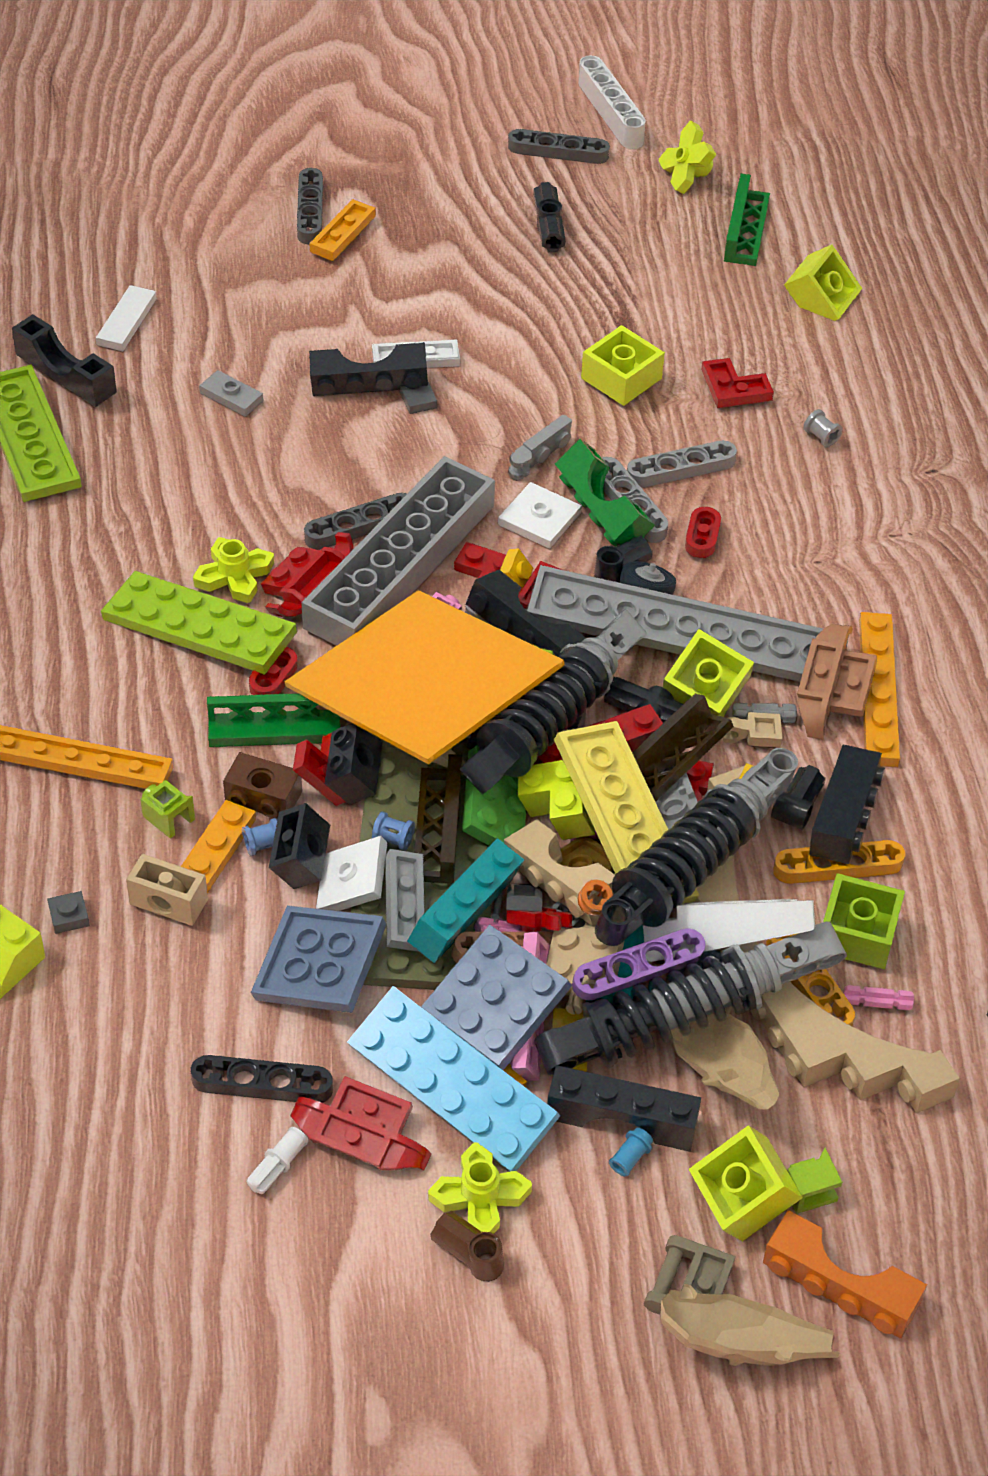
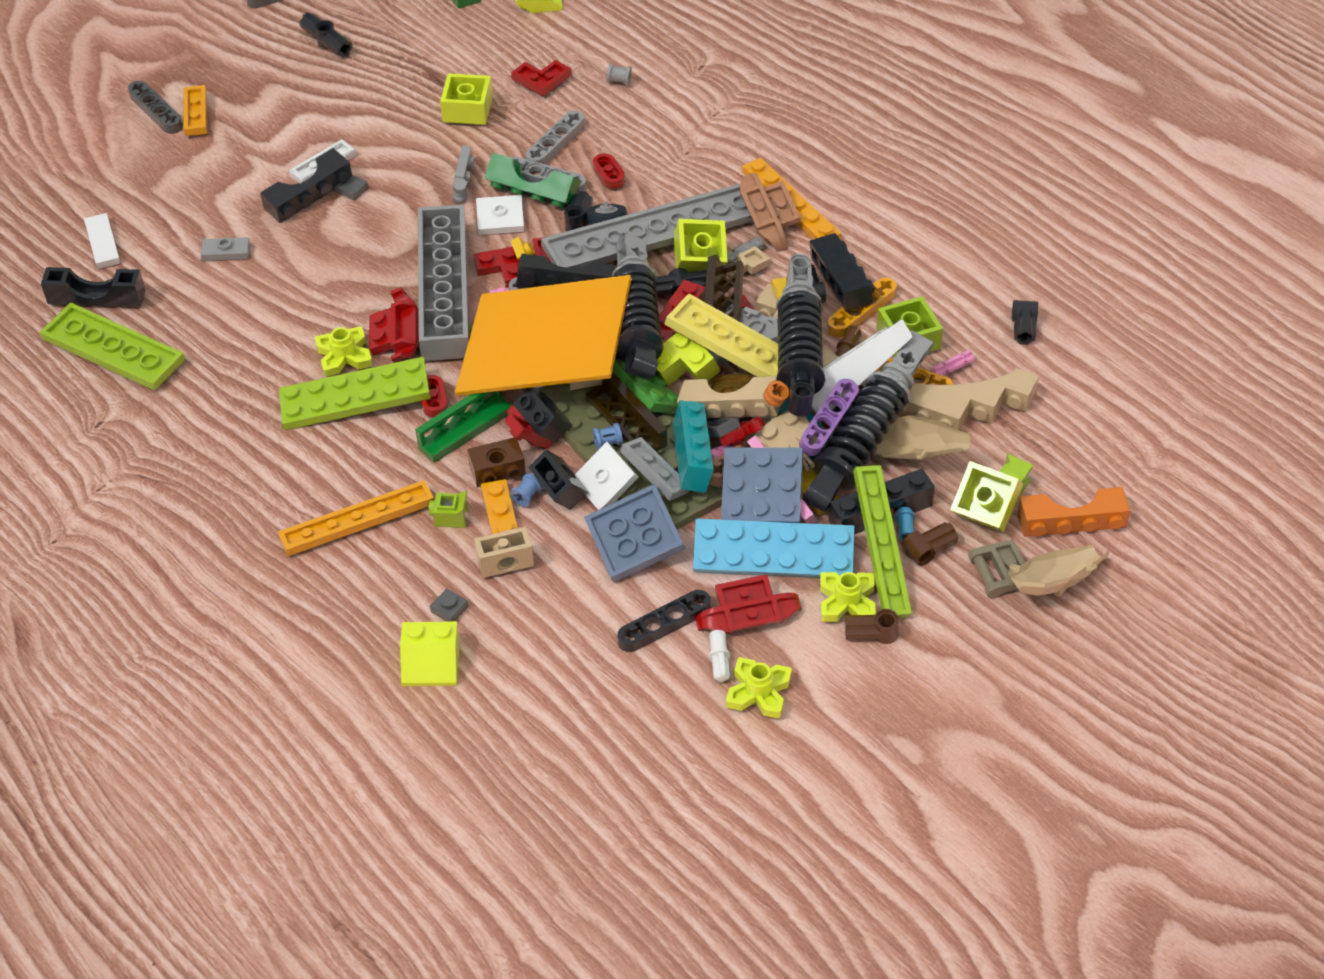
camera: 35 degrees left, 0 degrees up
(281, 1226) = (759, 685): none -> neon yellow plant
(354, 515) = (387, 277): dark grey beam -> none
(566, 1153) = (882, 540): none -> lime plate
(625, 1192) = (924, 546): none -> reddish brown piece
(780, 890) = (849, 340): none -> reddish brown pin

